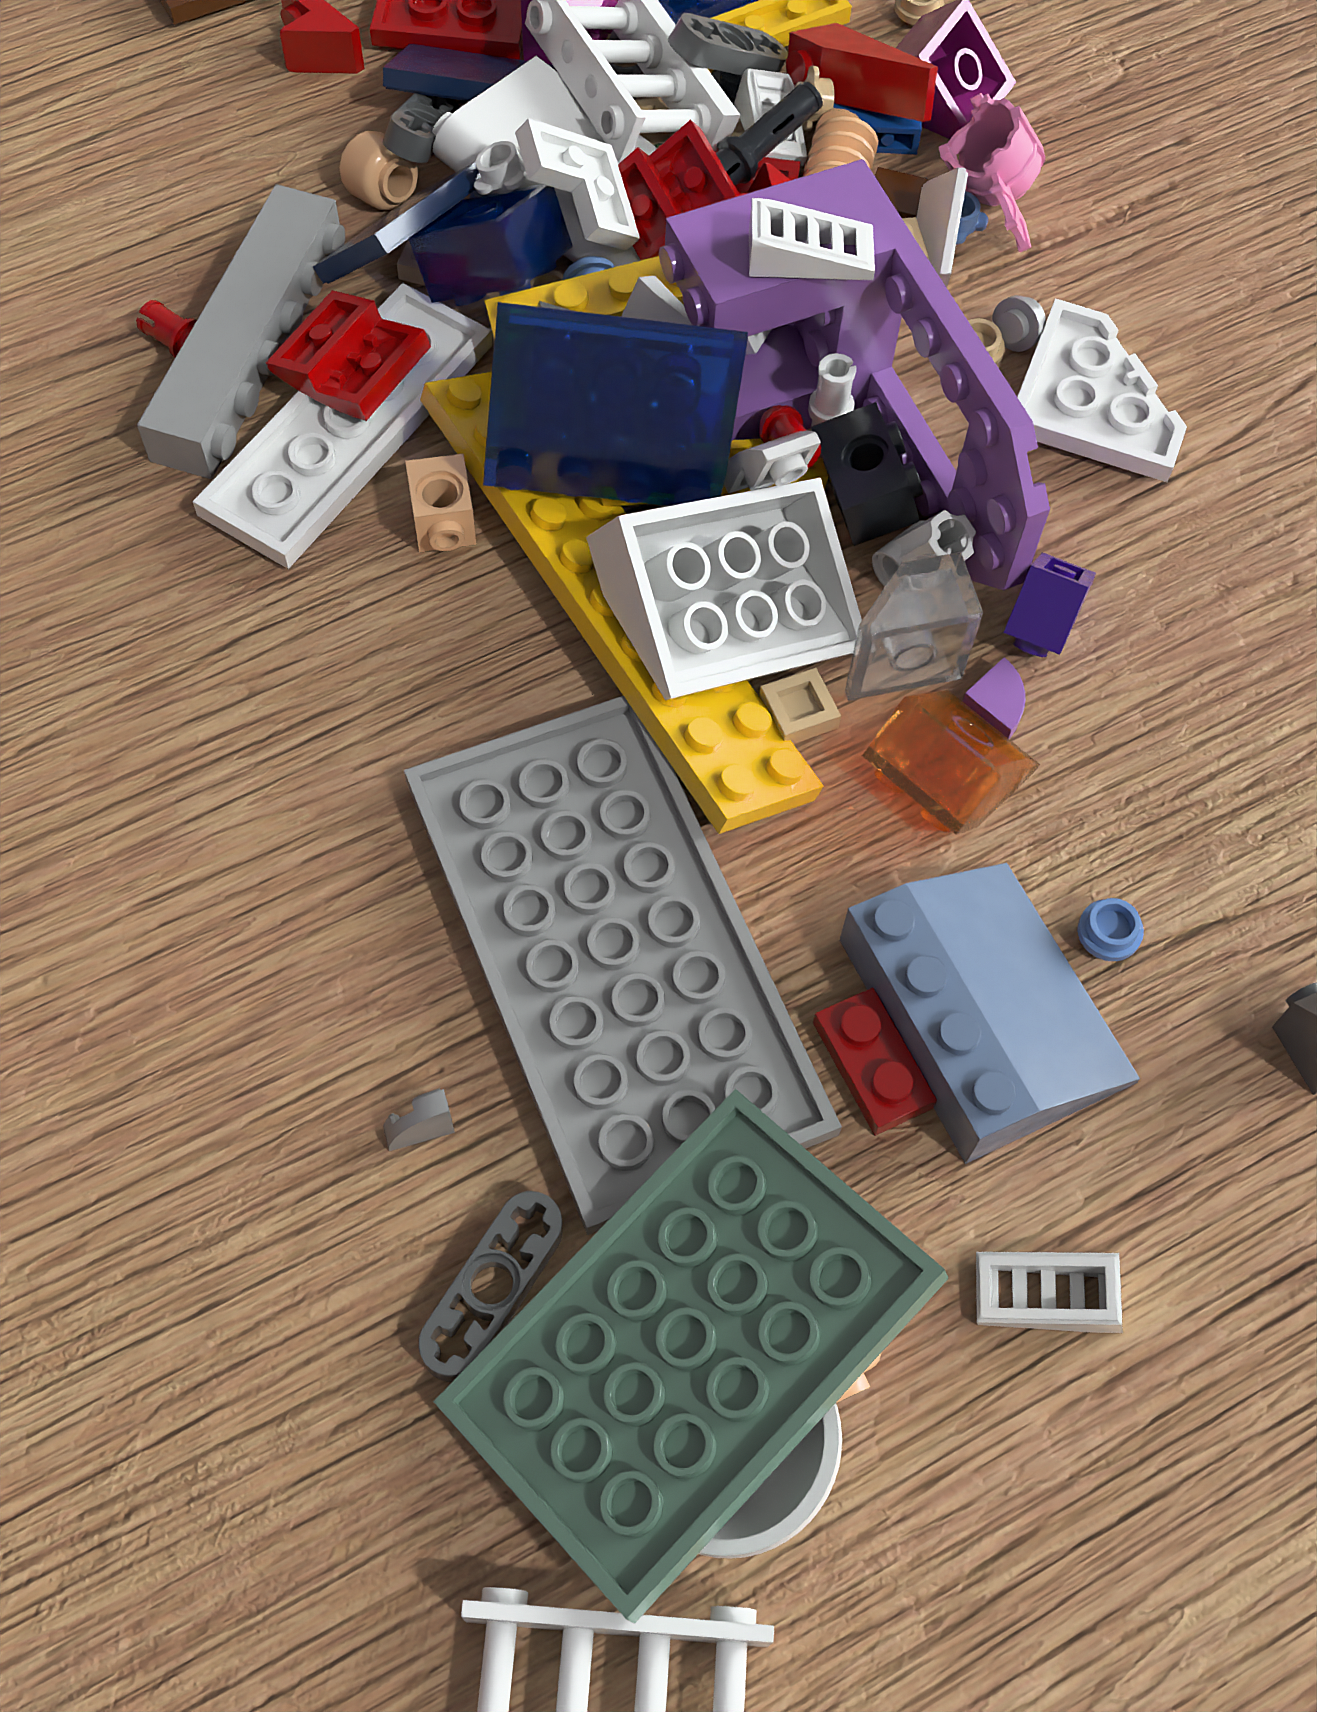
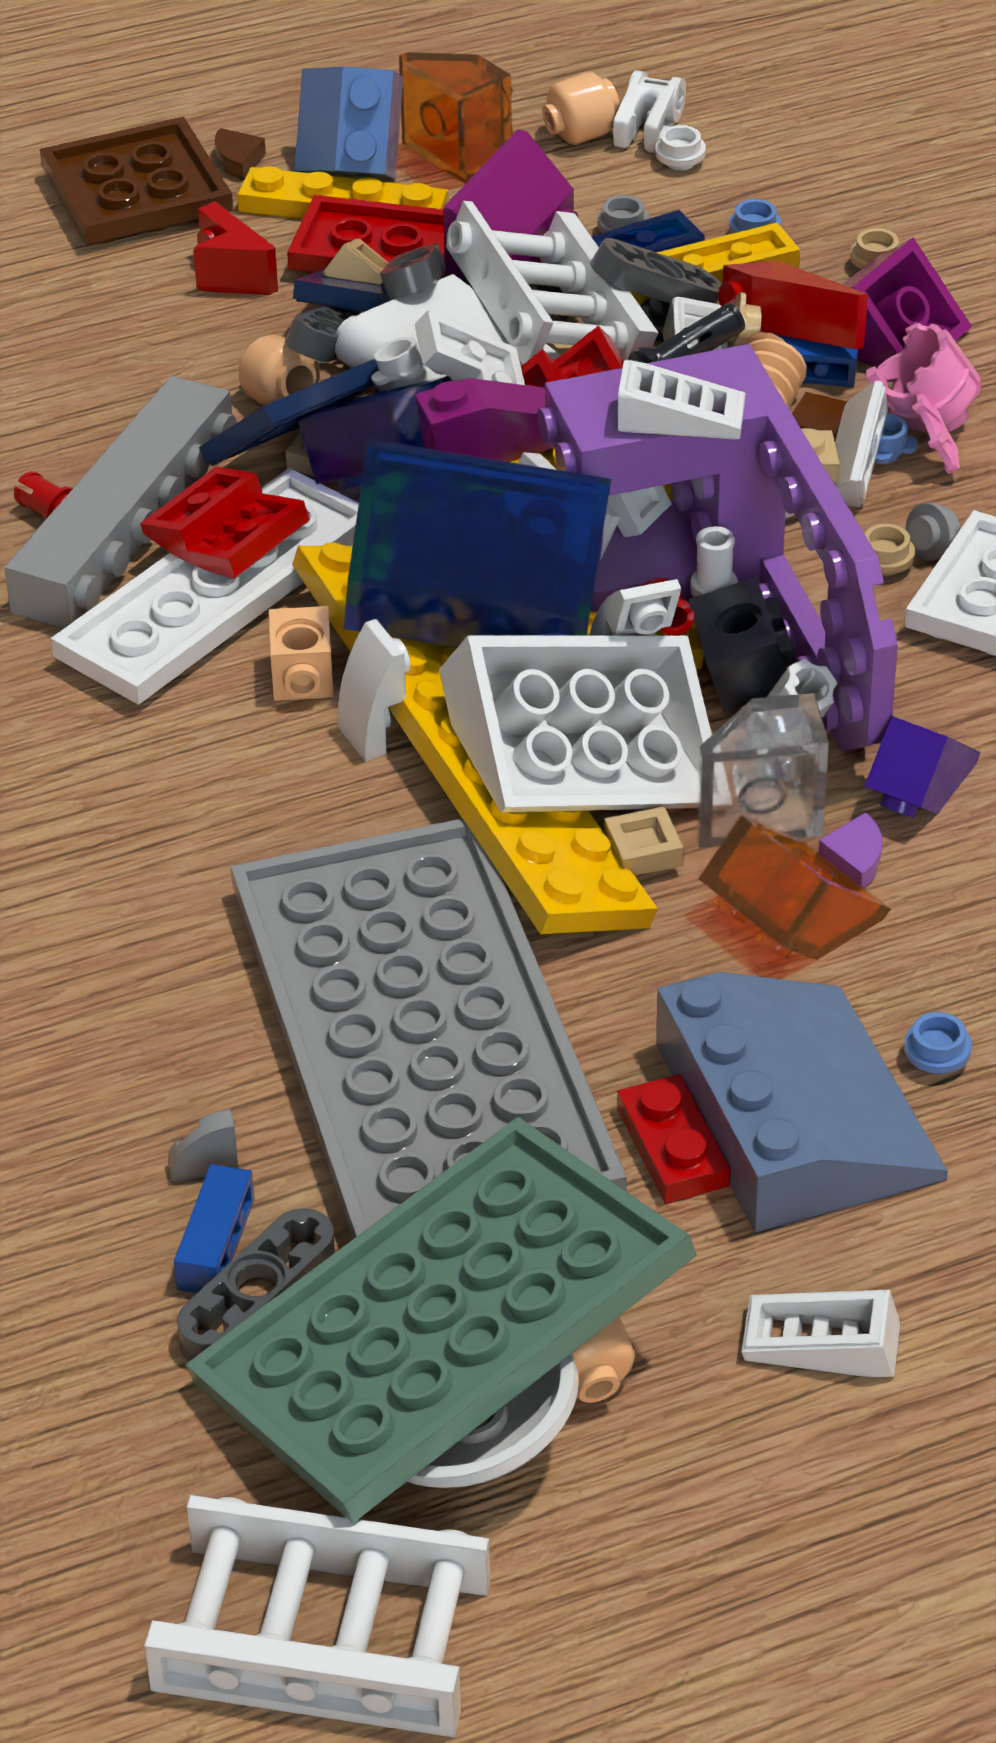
camera: 10 degrees right, 20 degrees down
(441, 1219) = (214, 1226): none -> blue piece
(442, 43) = (356, 263): none -> tan slope
(497, 54) = (413, 271): none -> dark grey beam
(518, 550) = (369, 686): none -> white slope
(598, 241) = (482, 418): none -> magenta slope

